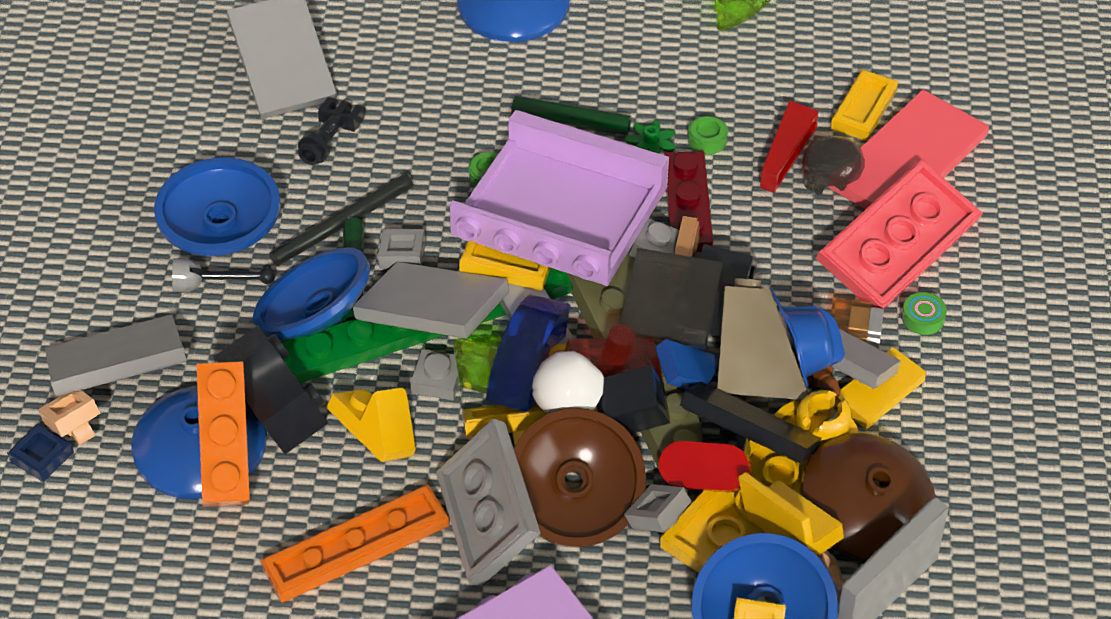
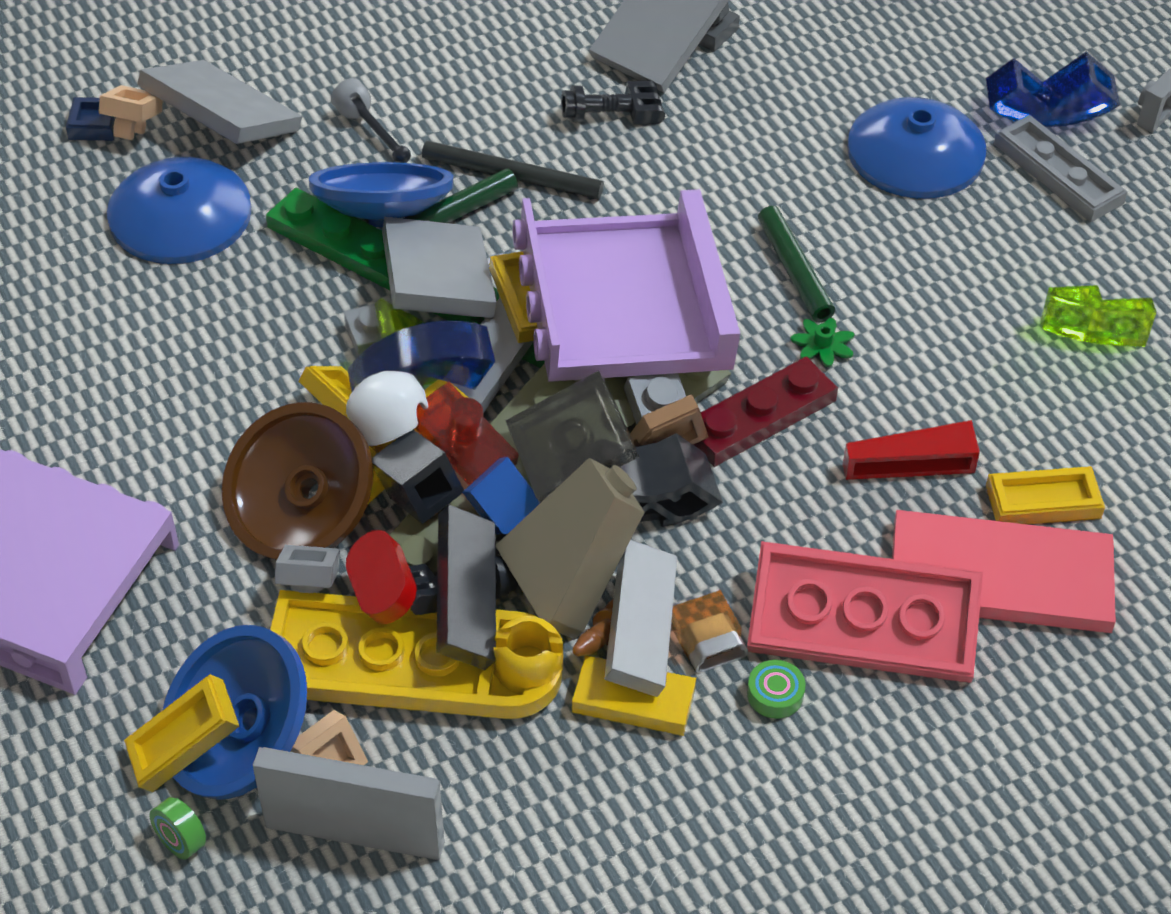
camera: 55 degrees right, 0 degrees up
(217, 206) = (435, 72): blue dish -> none
(222, 434) = (154, 202): orange brick -> none
(272, 390) = (249, 215): black brick -> none
(354, 543) = (135, 371): orange tile -> none
(377, 421) = (271, 310): yellow slope -> none
(401, 246) = (496, 222): light grey plate -> none
(487, 503) = (221, 429): light grey tile -> none
(707, 135) = (871, 383): bright green tile -> none
(789, 514) = (352, 674): yellow panel -> none
(814, 335) = (597, 566): blue piece -> none
(831, 163) = (914, 499): clear smoke hair -> none
(843, 486) = (492, 772): reddish brown dish -> none

